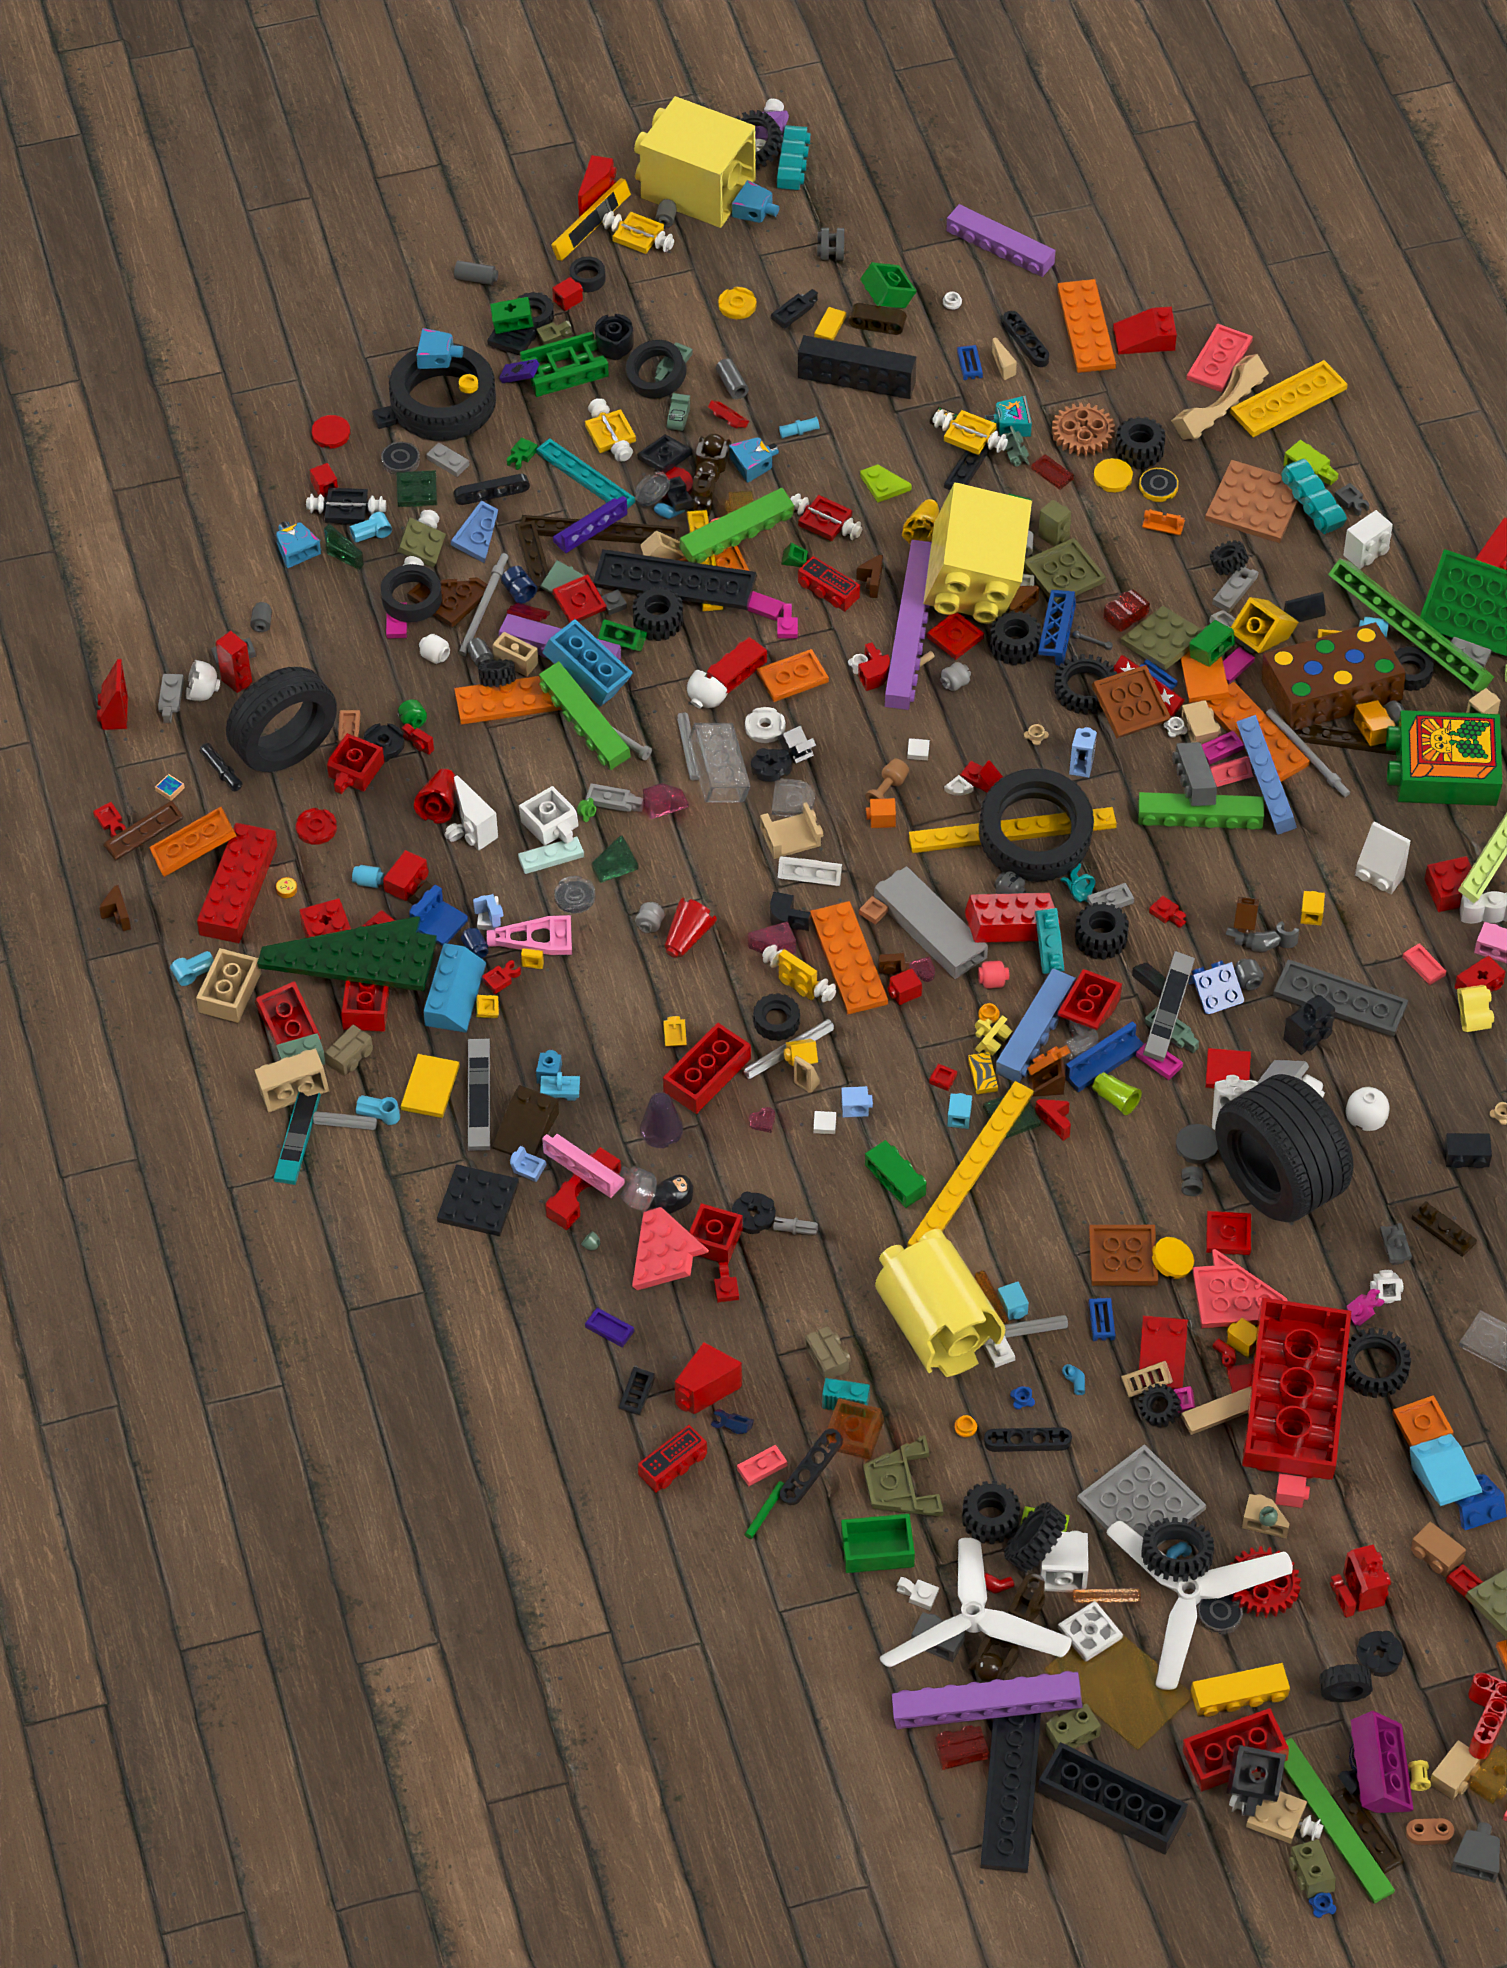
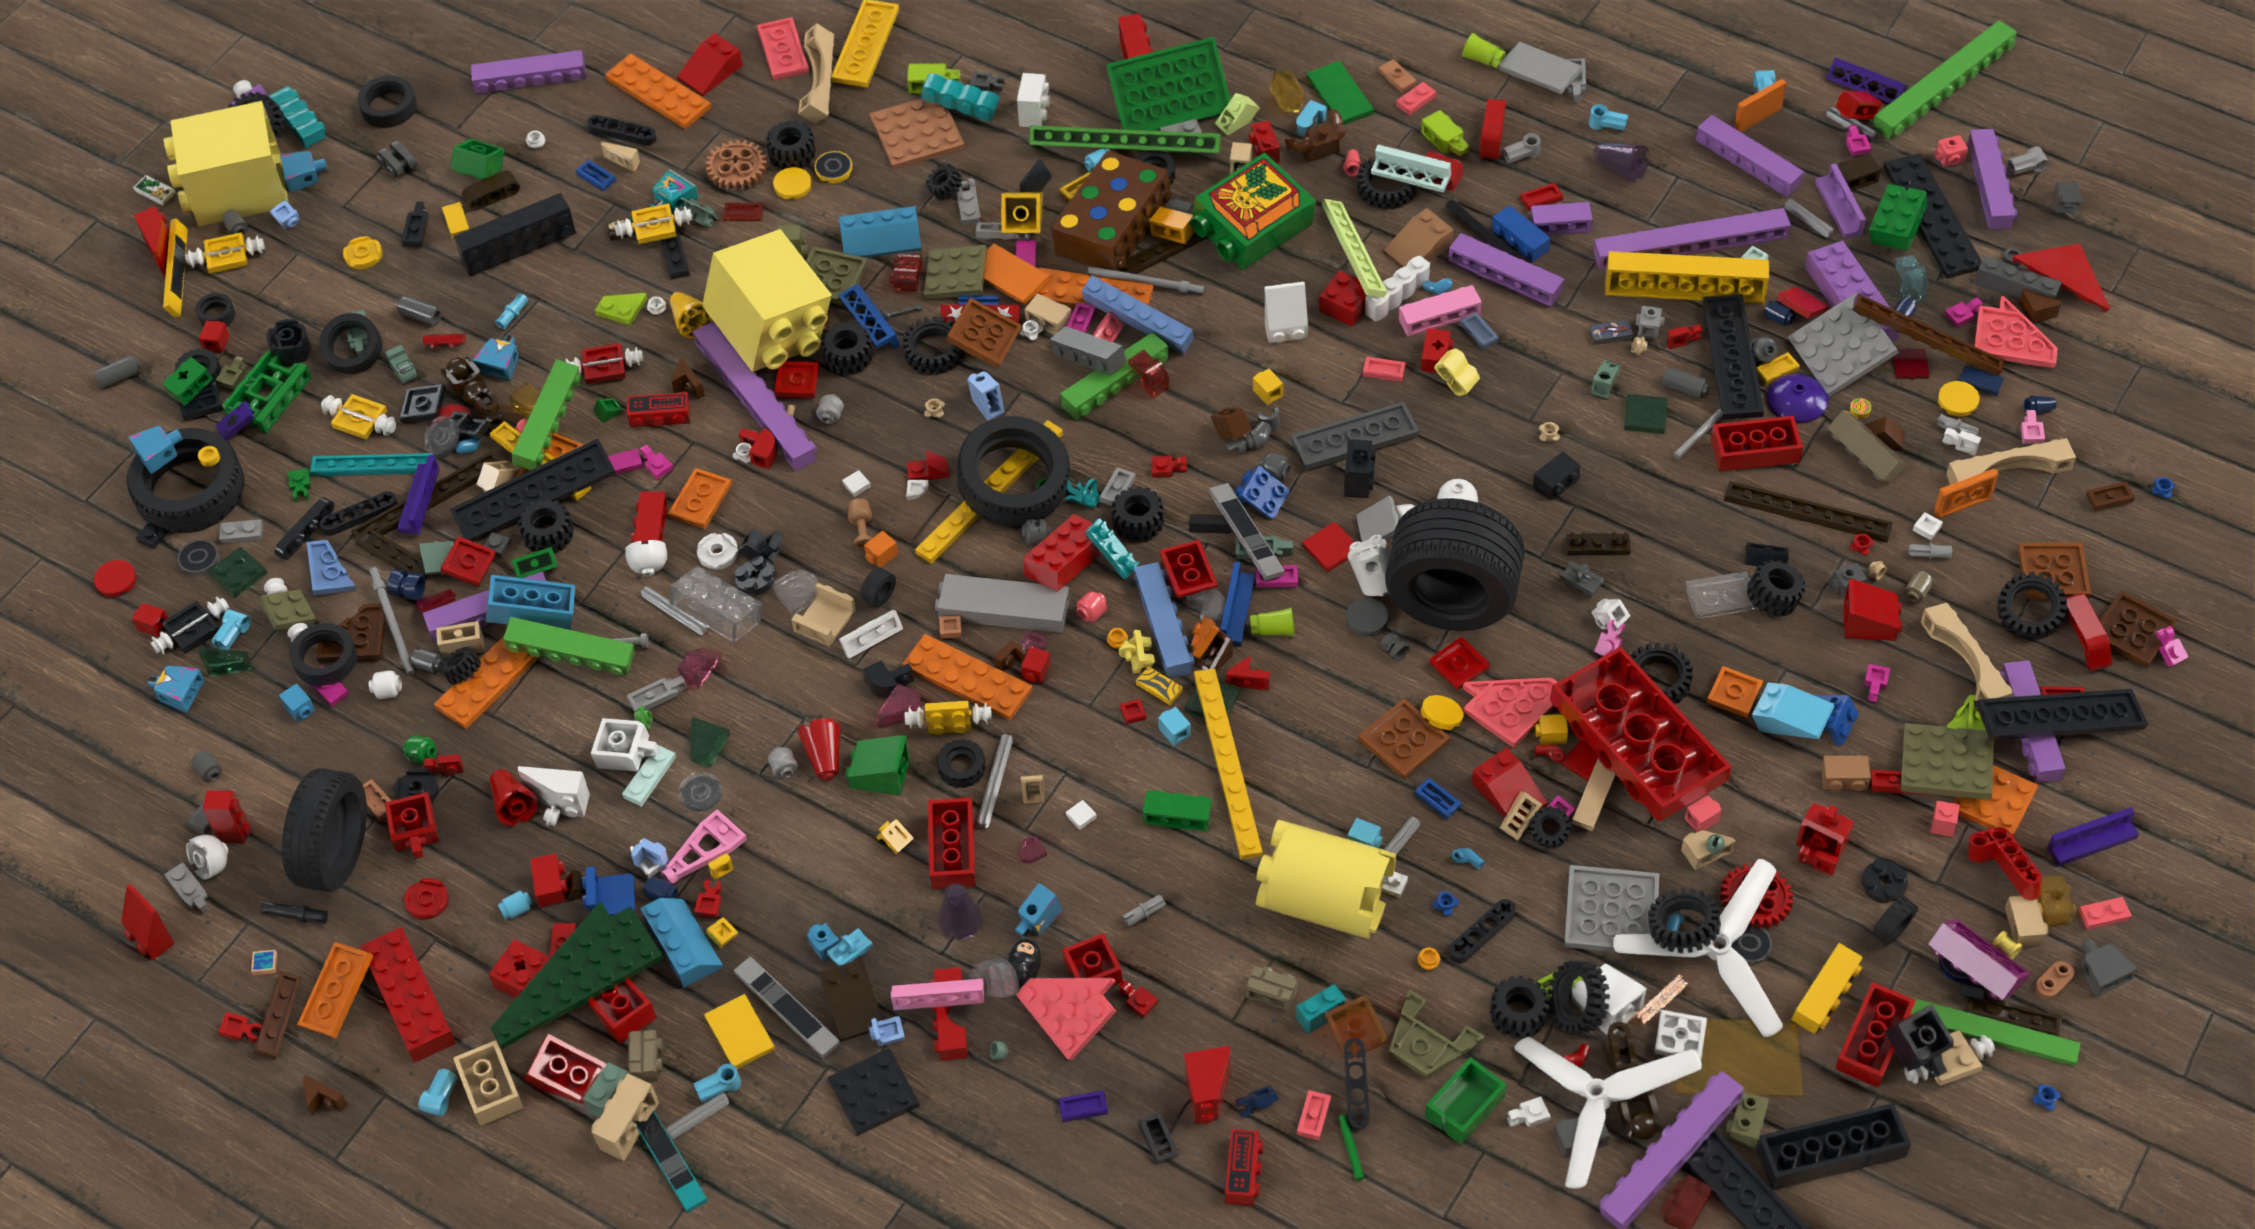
camera: 40 degrees left, 0 degrees up
(286, 887) = (452, 967): tile -> none
(363, 616) = (297, 703): none -> dark azure brick
(541, 503) = (357, 510): none -> black beam
(629, 140) = (154, 190): none -> tile
(708, 232) = (285, 215): none -> light blue bracket
(715, 973) = (879, 765): none -> green slope
(716, 1165) = (1038, 911): none -> dark azure torso
(760, 1203) = (1100, 914): black plate -> none
(804, 1049) = (1010, 773): yellow brick -> none
(848, 839) = (878, 587): none -> black tyre
(855, 1101) = (1089, 780): light blue brick -> none
(873, 174) = (390, 117): none -> black tyre
(910, 500) = (656, 305): none -> white plate
(1137, 564) = (880, 232): none -> dark azure slope
(1157, 521) = (861, 193): orange hinge -> none
(1211, 643) = (999, 249): green brick -> none
(1227, 828) = (1152, 372): none -> clear red brick
(1312, 1868) = (2016, 1076): olive brick -> none
(1479, 1646) = (1944, 818): none -> coral brick

